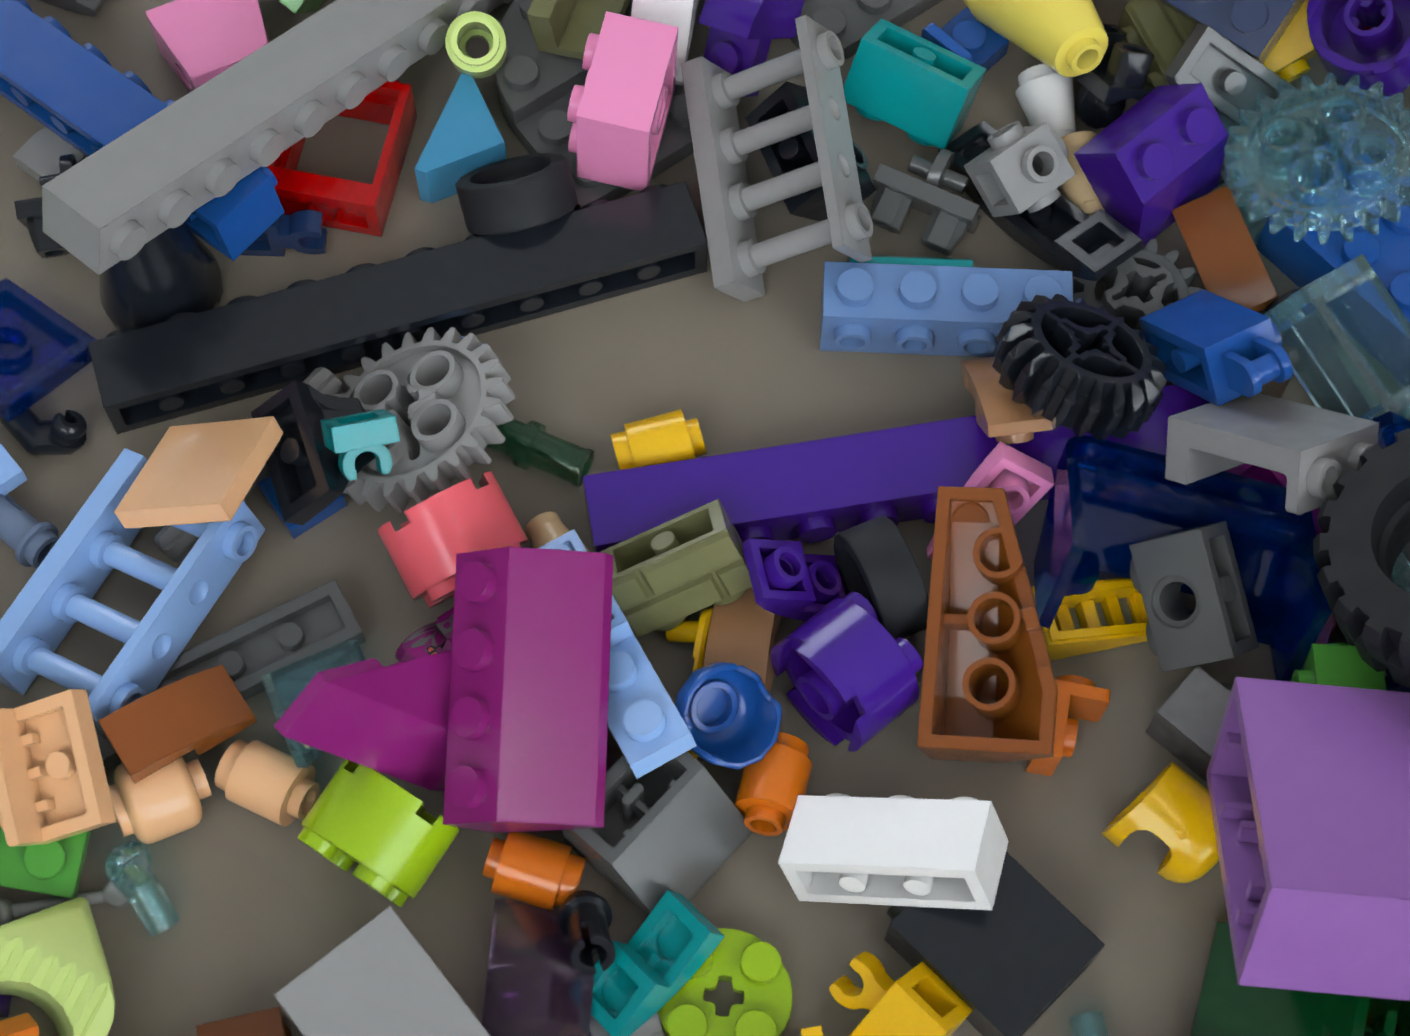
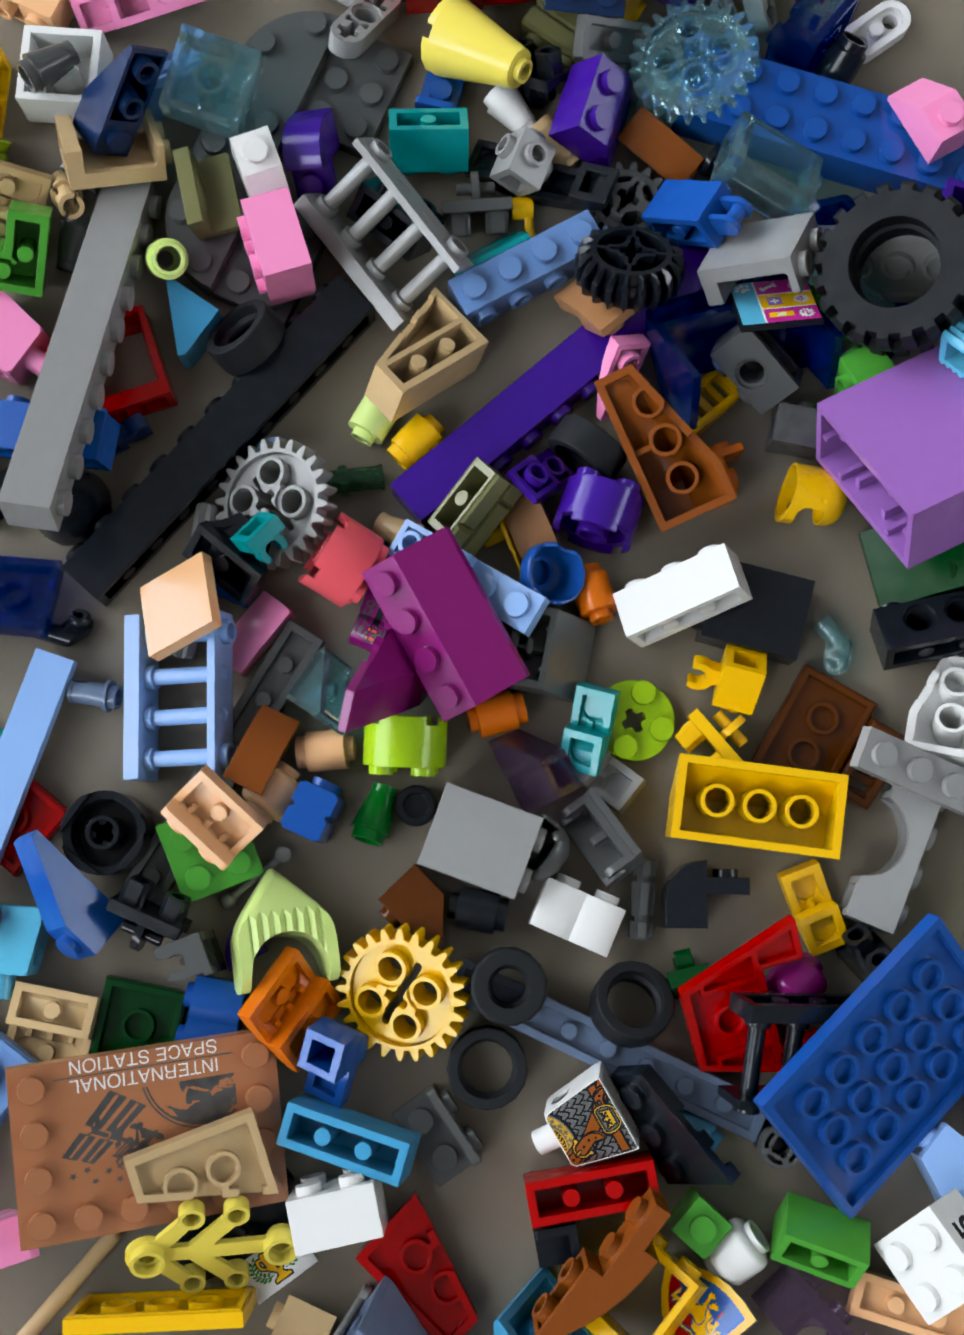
camera: 30 degrees left, 15 degrees up
(131, 873) = (292, 844): clear light blue arm -> none
(192, 848) = (314, 810): none -> blue brick
(273, 913) = (374, 817): none -> green cone
(283, 574) = (258, 631): none -> bright pink slope
(334, 924) = (415, 805): none -> black tile
(585, 922) = (542, 724): black pin -> none
(624, 384) = (369, 424): none -> yellowish green brick
(731, 341) = (425, 358): none -> tan wedge
(990, 236) = (524, 210): none -> yellow hand
(1255, 525) = (774, 306): none -> piece

